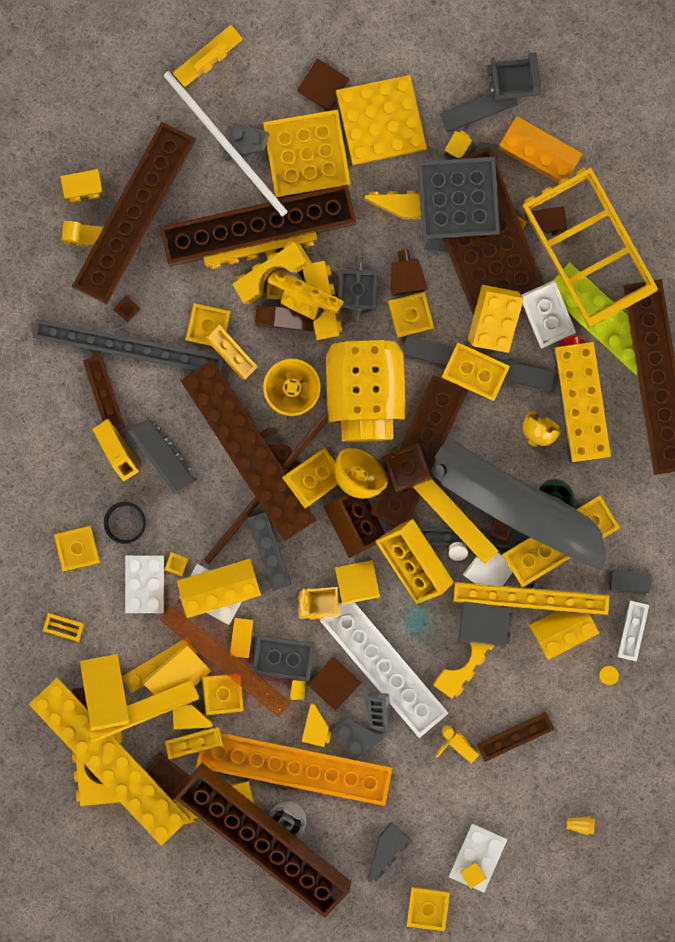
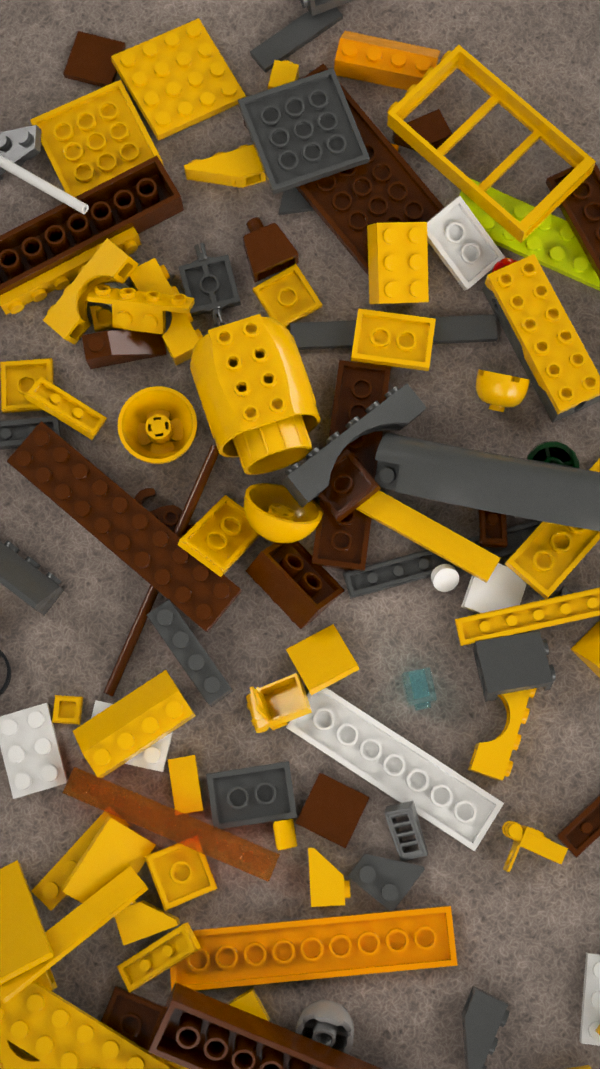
camera: 20 degrees left, 10 degrees down
(388, 458) = (313, 476): none -> dark grey arch
(414, 562) = (391, 608): yellow slope -> none

